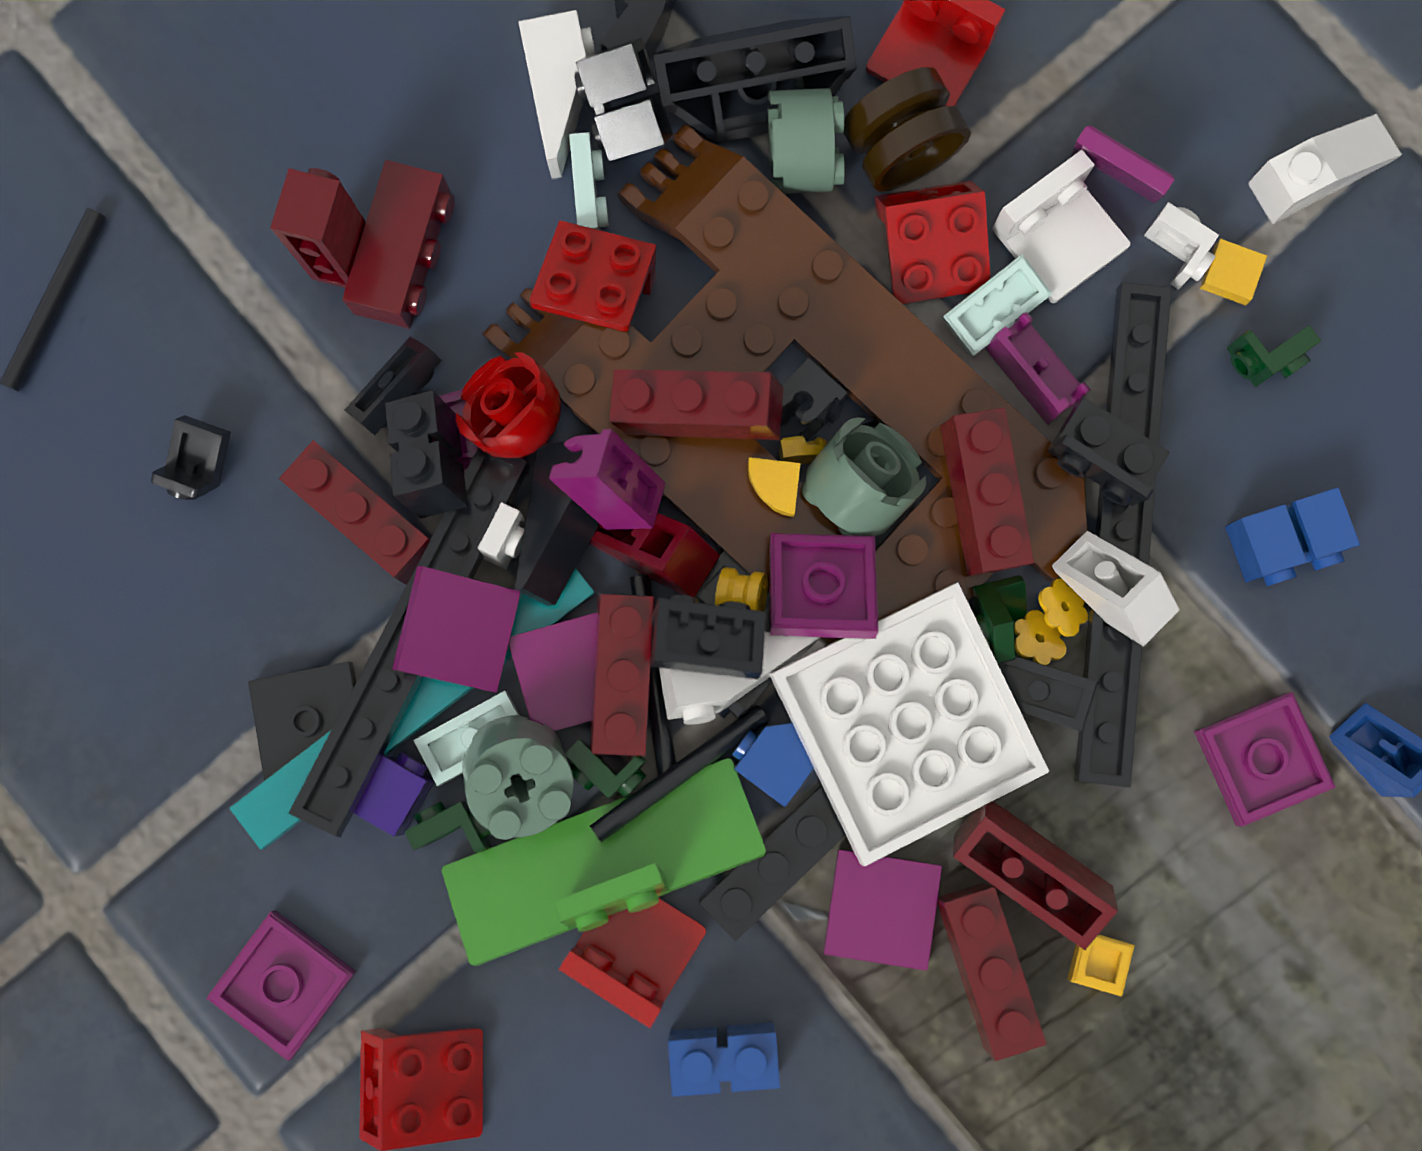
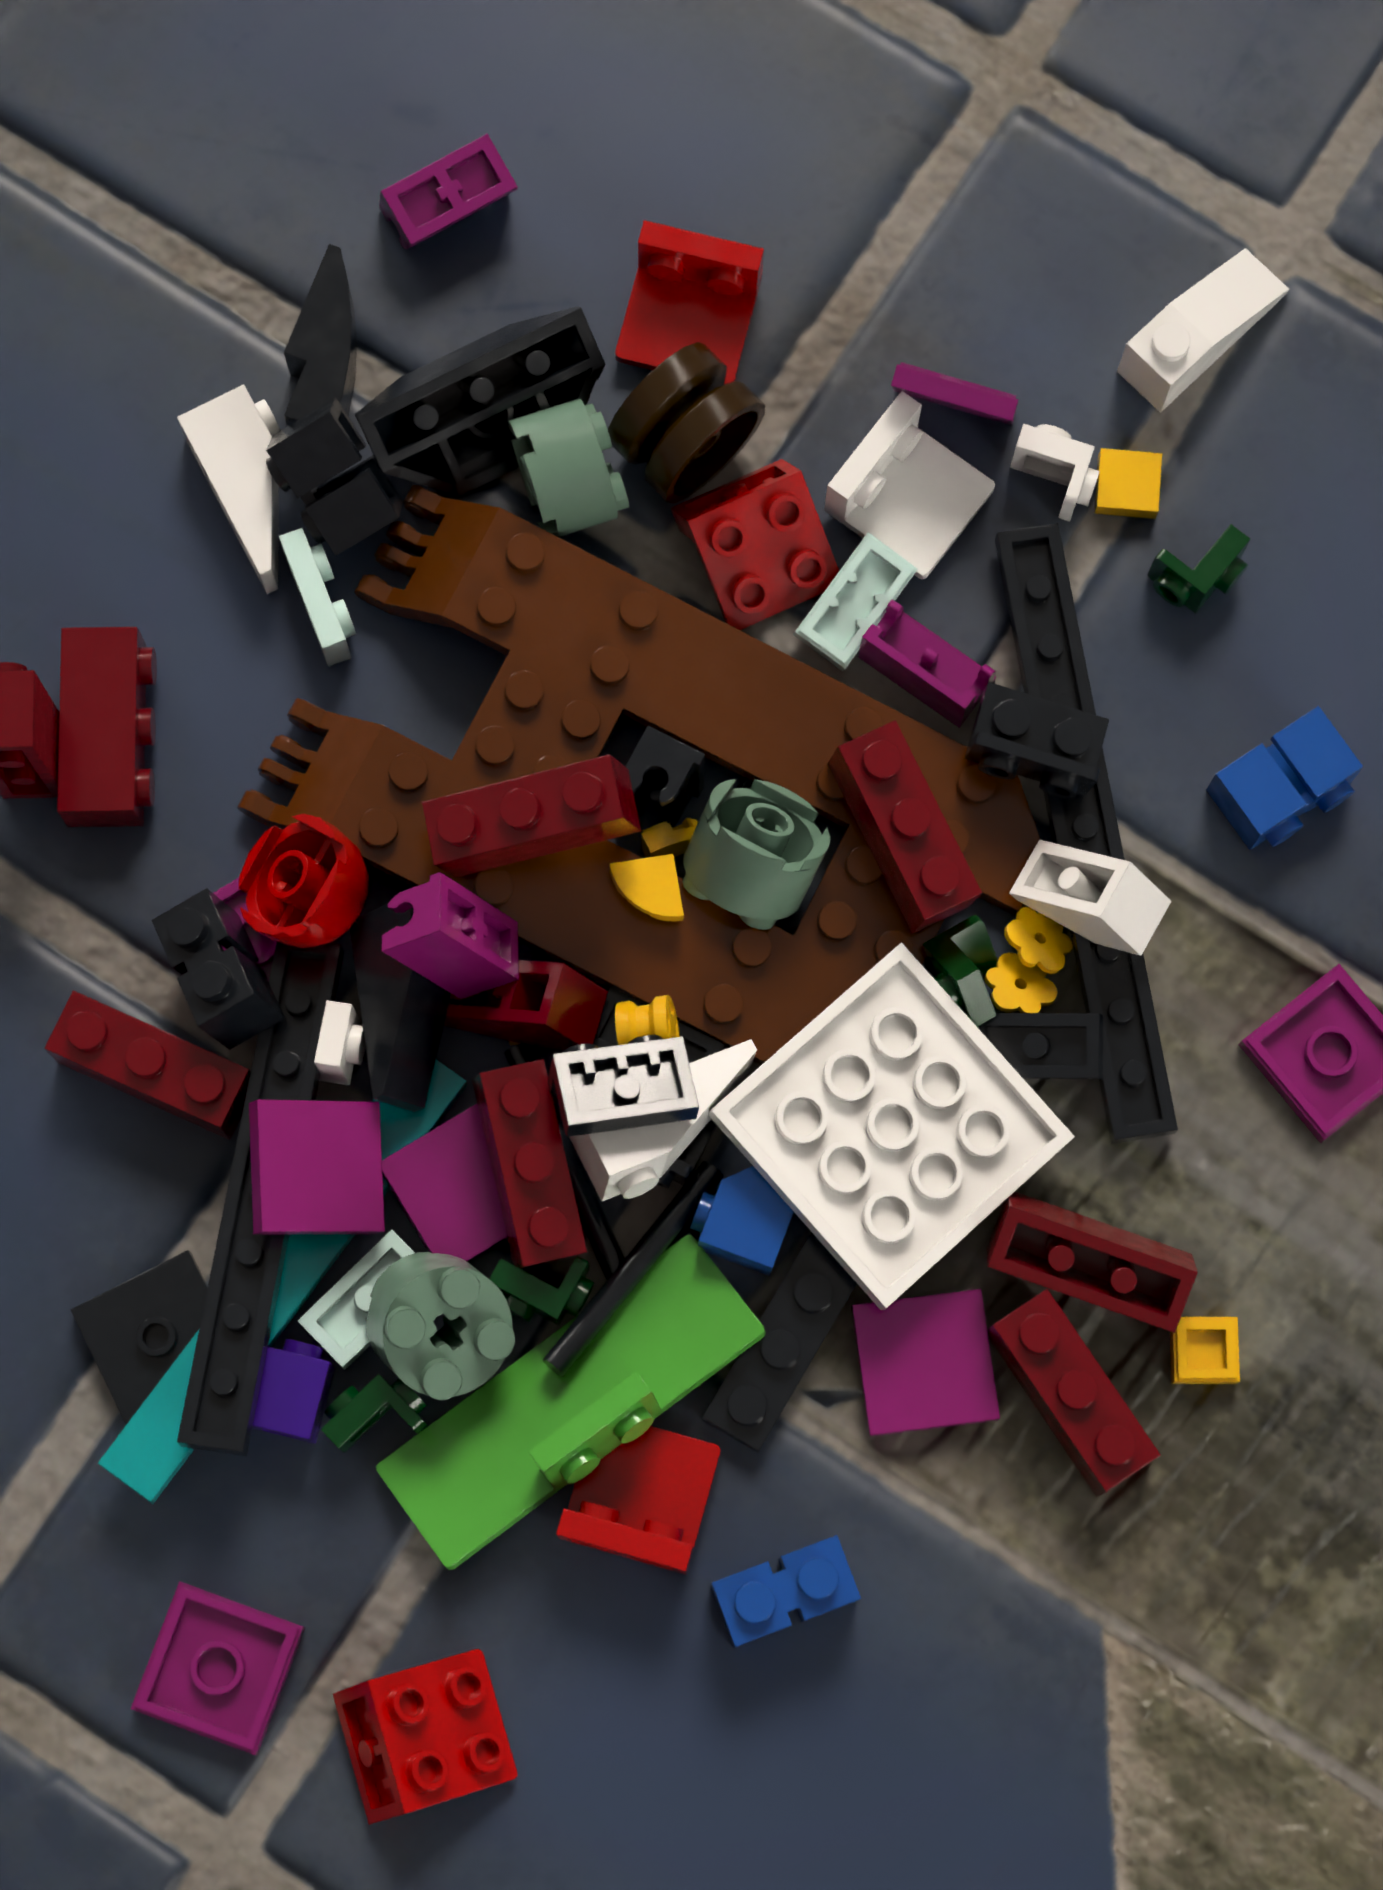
camera: 20 degrees left, 5 degrees down
(403, 374) = (150, 889): black plate -> none
(594, 276) = (360, 699): red bracket -> none
(823, 586) = (741, 990): magenta tile -> none

